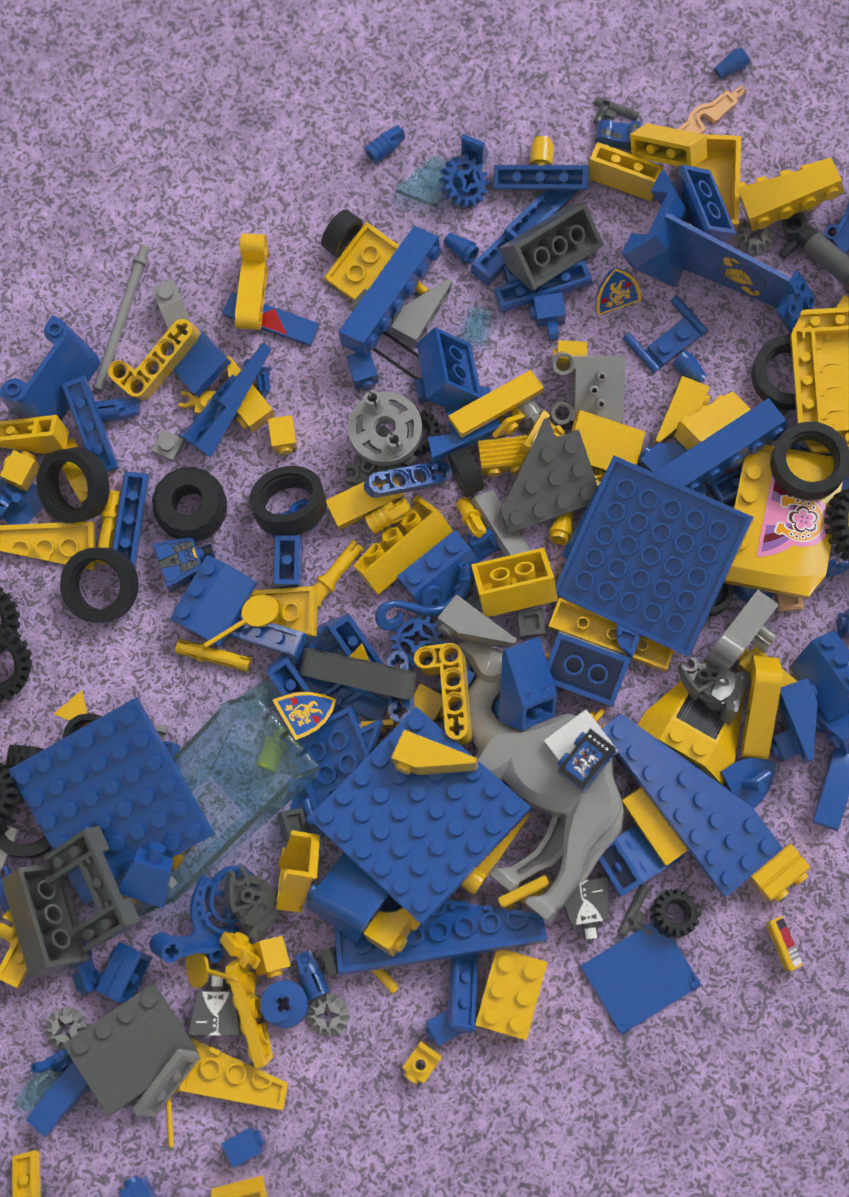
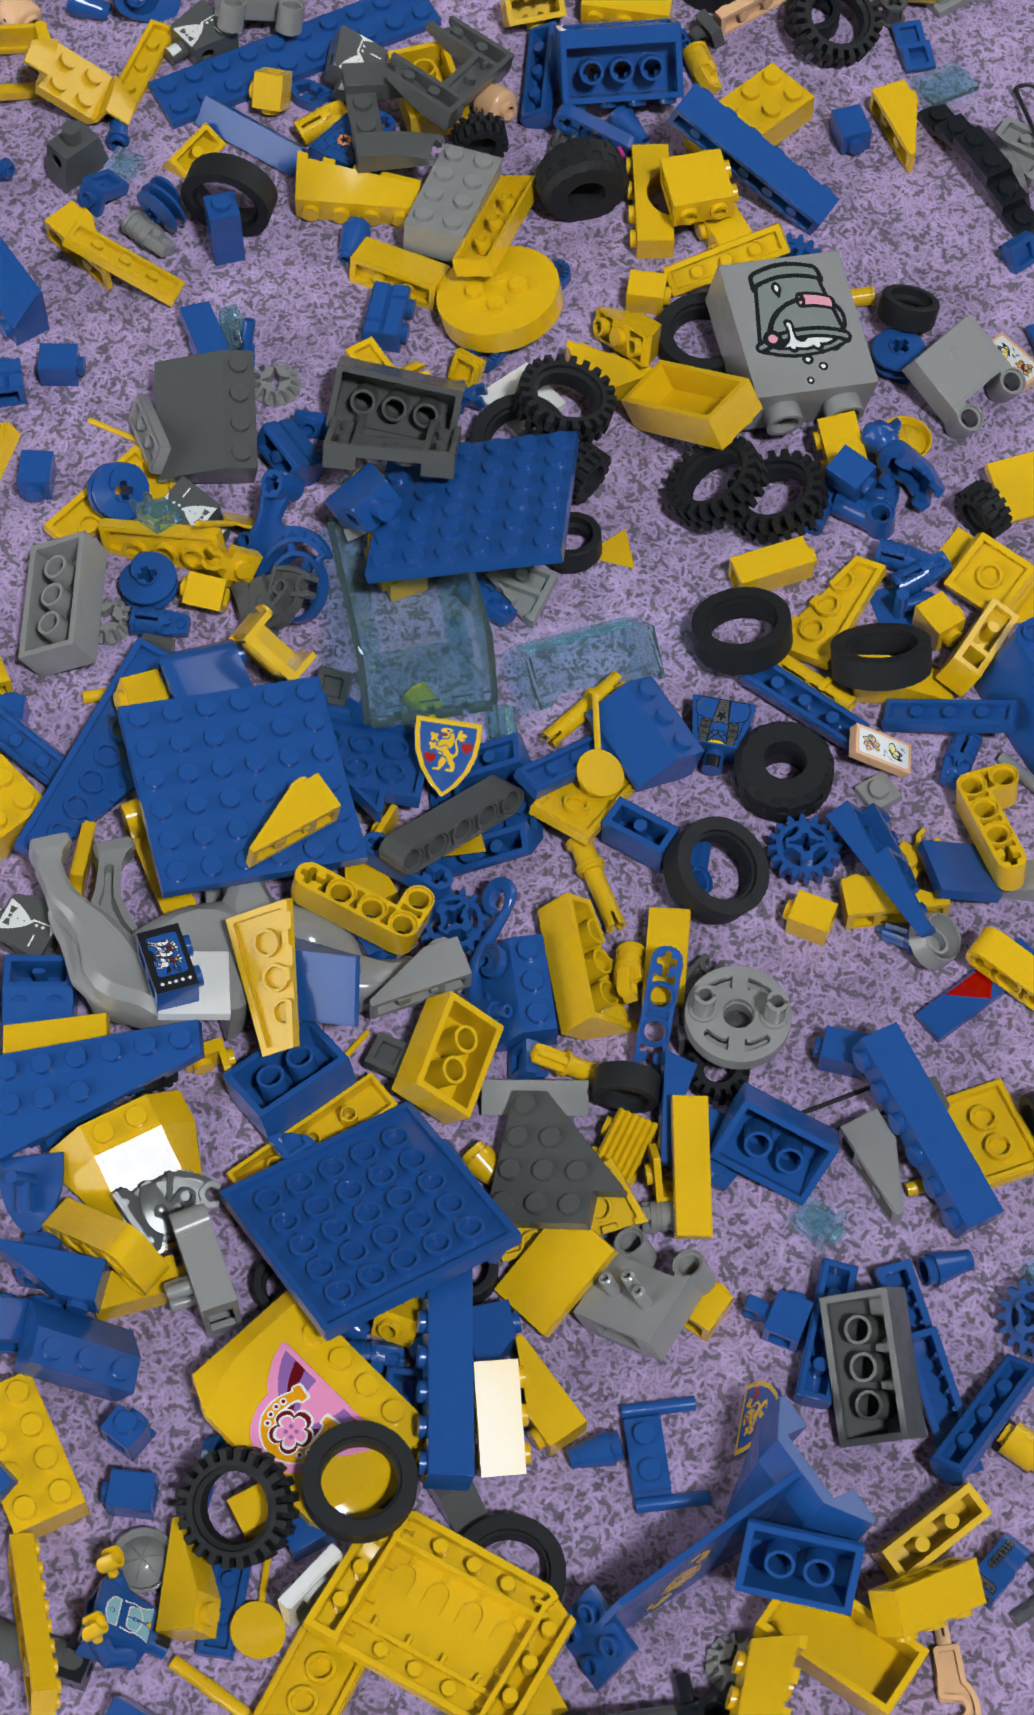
camera: 115 degrees right, 15 degrees down
(35, 597) = (773, 565): none -> yellow brick
(139, 455) = (880, 750): none -> tile
(172, 678) = (585, 658): none -> clear light blue windscreen
(228, 1070) = (103, 486): none -> blue piece
(235, 1025) = (157, 513): none -> clear light blue plate
(245, 458) = (791, 858): none -> blue gear
(248, 349) = (941, 947): none -> light grey hat
(340, 1046) = (63, 604): none -> light grey brick
(539, 708) = (267, 965): none -> yellow wing

